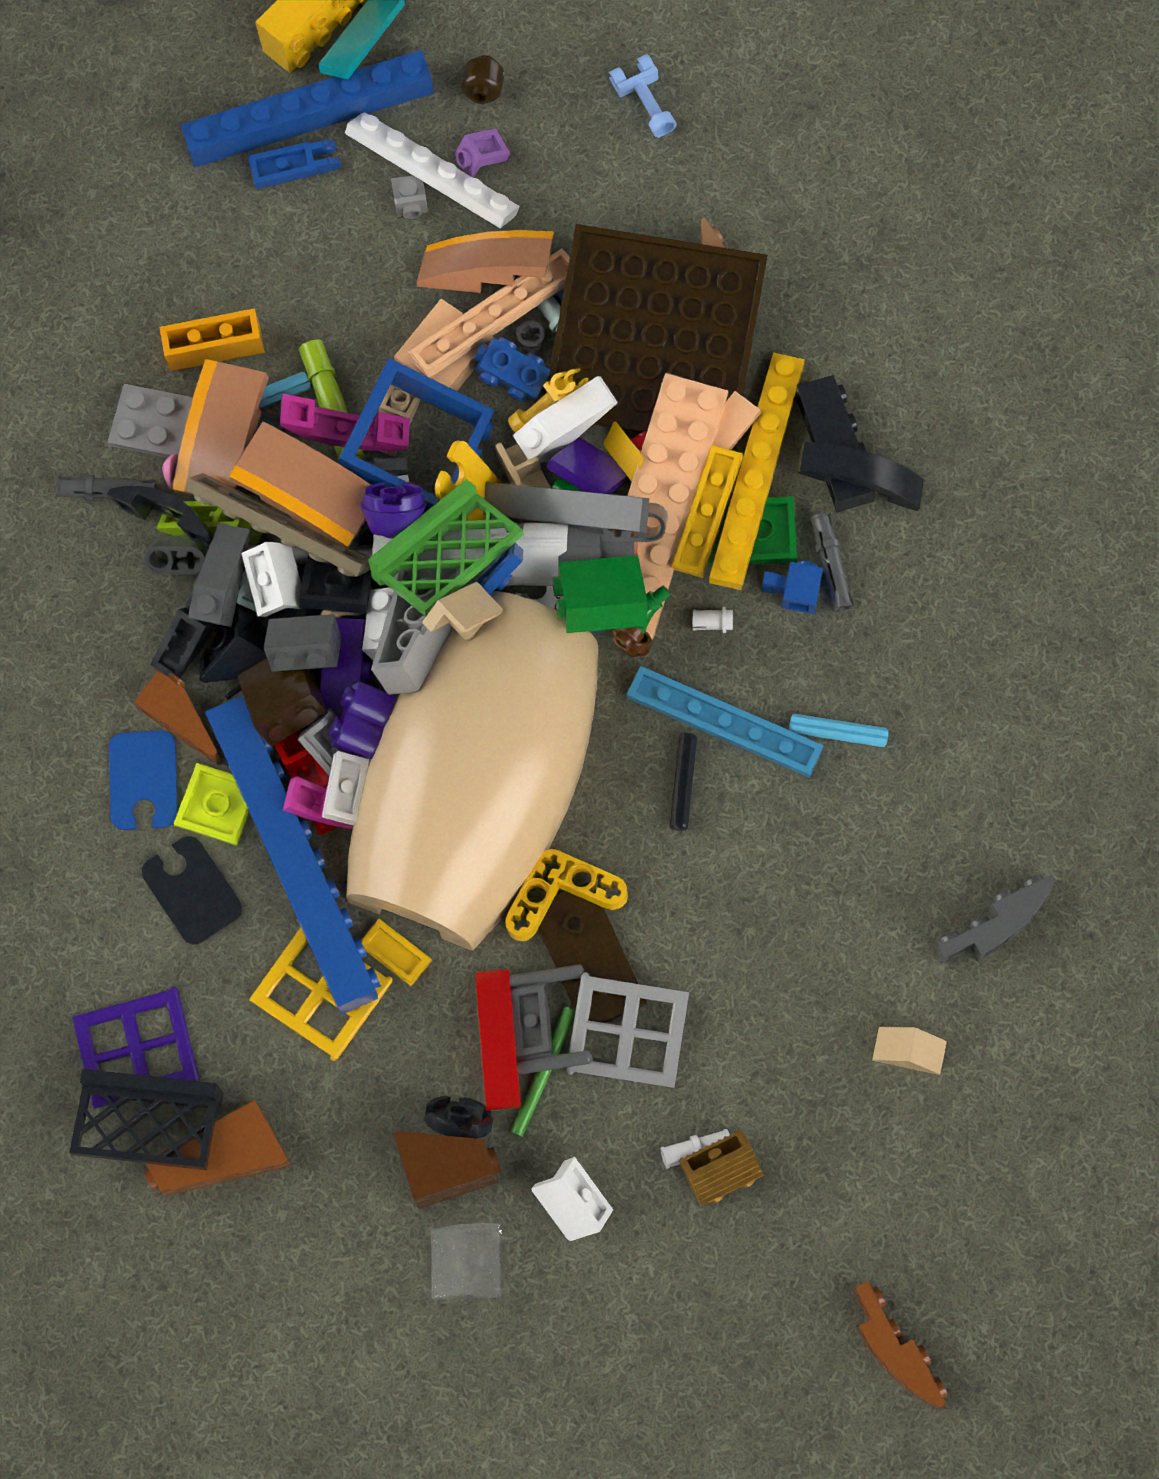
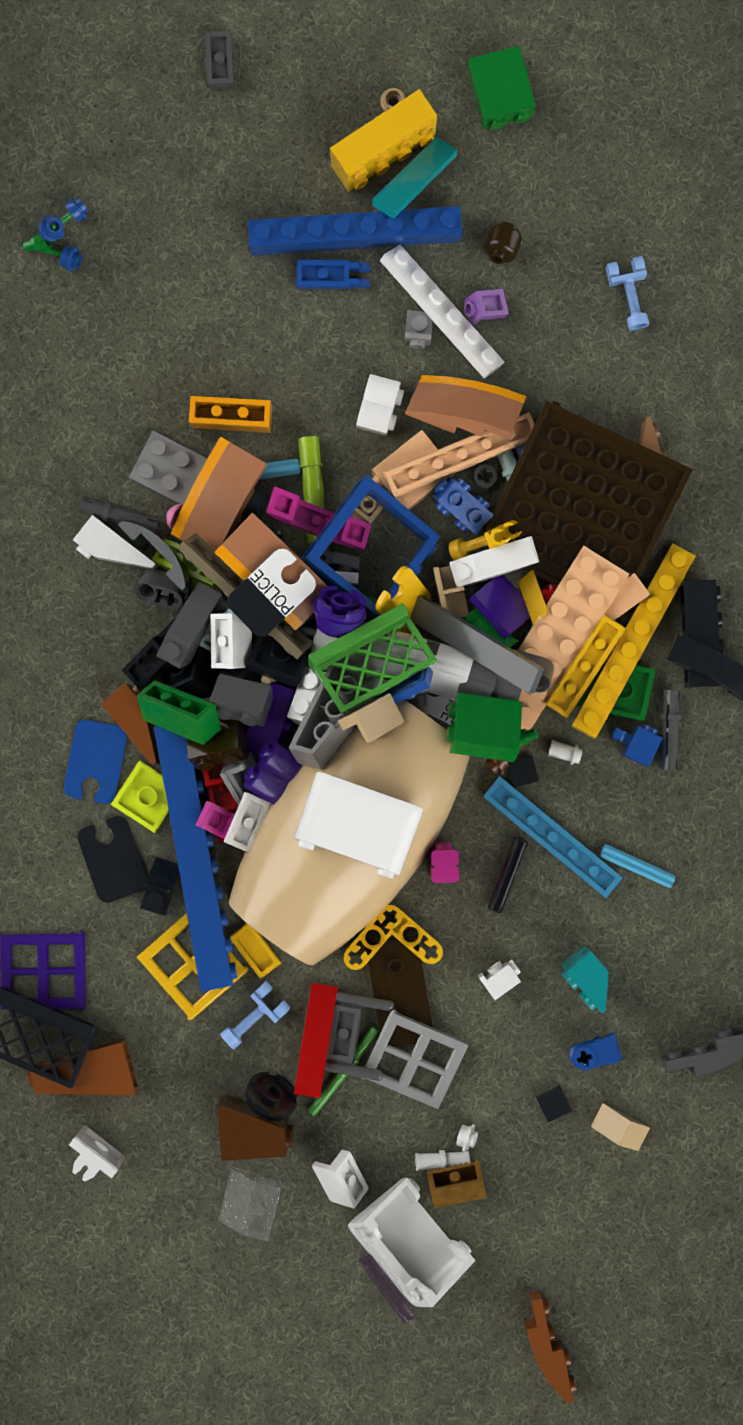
camera: 10 degrees right, 15 degrees up
(101, 524) = (106, 545): none -> white slope
(231, 678) = (179, 712): none -> green brick
(252, 1249) = (95, 1154): none -> white piece
(258, 906) = (160, 886): none -> black slope
(300, 512) = (265, 598): none -> piece
(384, 288) = (379, 404): none -> white brick
(393, 1062) = (232, 1036): none -> light blue bar
(476, 723) = (358, 824): none -> white windscreen
(599, 779) = (444, 863): none -> dark pink brick
(668, 656) = (522, 771): none -> black tile
(669, 1329) = (387, 1288): none -> axle
(679, 1262) = (410, 1245): none -> white windscreen
(707, 904) = (500, 978): none -> white brick
(719, 1110) = (467, 1137): none -> white plate
(812, 867) = (589, 975): none -> teal slope
(817, 1043) = (553, 1103): none -> black tile
(855, 960) = (600, 1052): none -> blue piece

